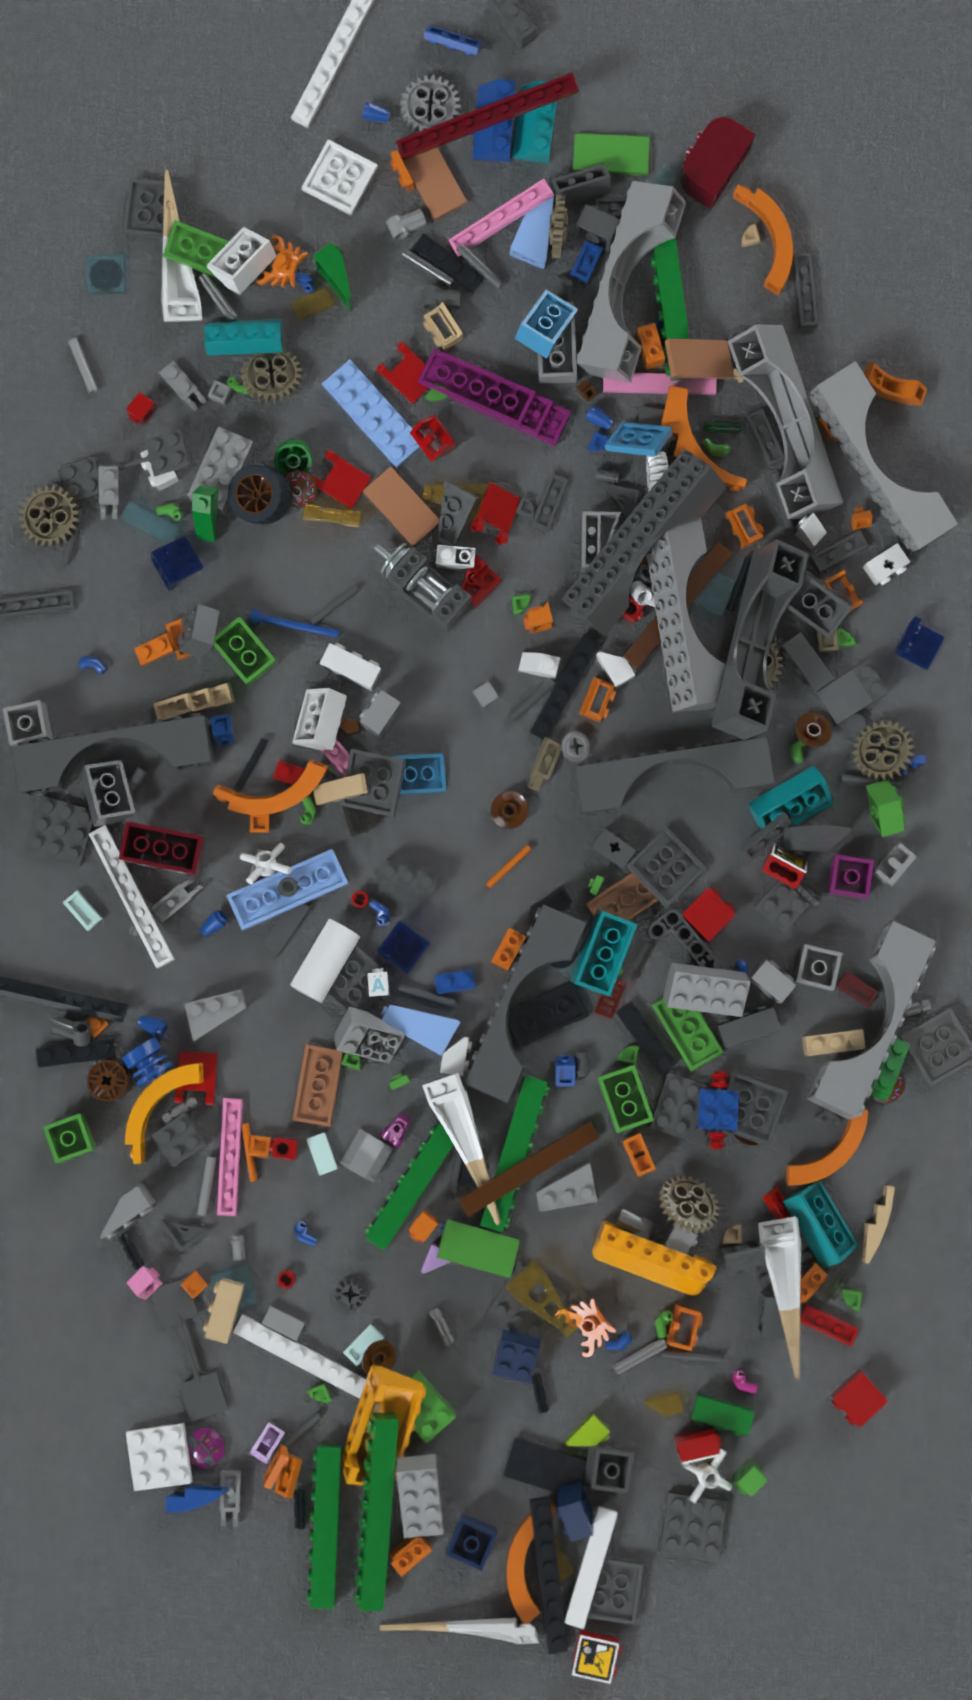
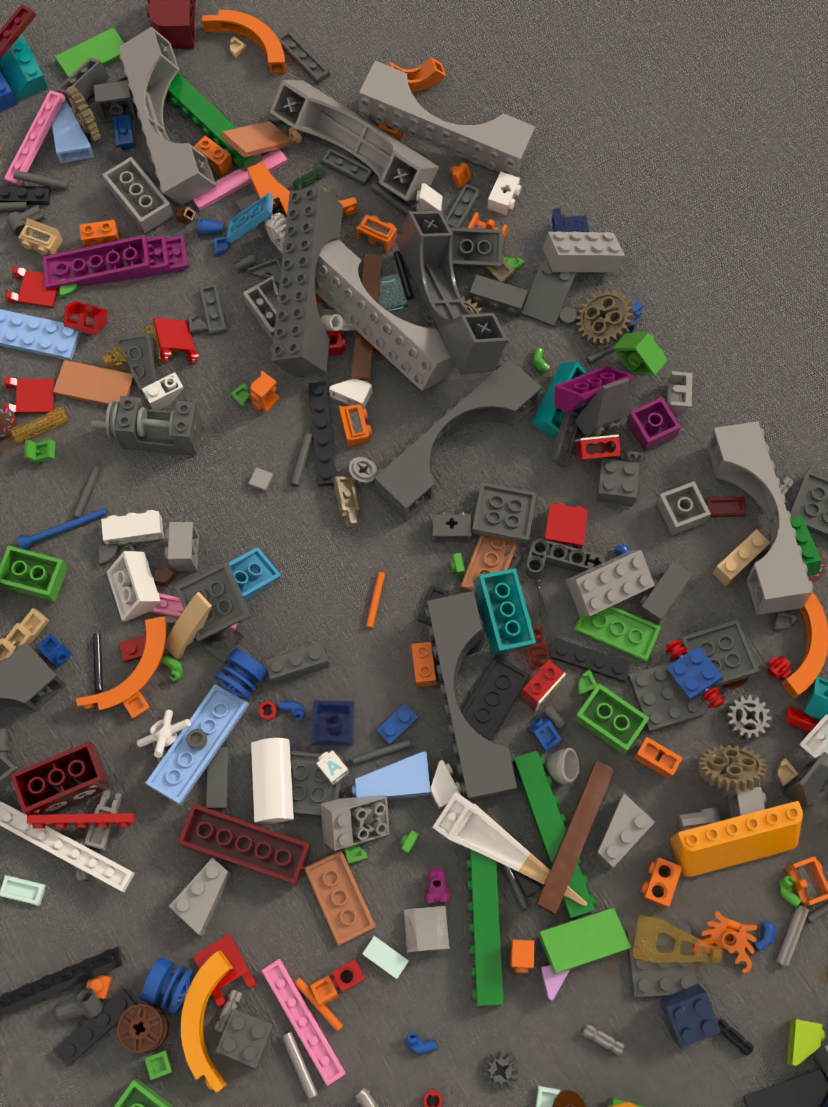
camera: 35 degrees left, 15 degrees down
(104, 1113) = (158, 1065): none -> bright green plate
(153, 1026) = (153, 949): blue cone -> none
(159, 891) = (81, 821): none -> red plate
(214, 923) = (151, 818): blue cone -> none
(271, 995) = (244, 844): none -> dark red brick
(318, 541) = (39, 451): none -> bright green bracket
(356, 857) = (243, 670): none -> blue wheel
(480, 581) = (200, 394): red slope -> none
(497, 361) = (99, 233): none -> orange brick
(511, 800) = (344, 545): reddish brown dish -> none
(539, 664) = (289, 428): white slope -> none
(545, 323) = (119, 181): dark azure slope -> none
(560, 1108) = (563, 766): none -> light grey hat
(573, 1252) = (666, 885): none -> orange brick
(589, 1034) = (542, 685): none -> red piece
(744, 1173) = (754, 723): none -> light grey gear
(772, 981) = (657, 541): light grey brick -> none
(792, 1152) = (778, 667): none -> red gear
(817, 810) = (582, 389): none -> magenta slope
(818, 725) = (540, 338): reddish brown dish -> none
(909, 677) = (583, 252): none -> light grey brick

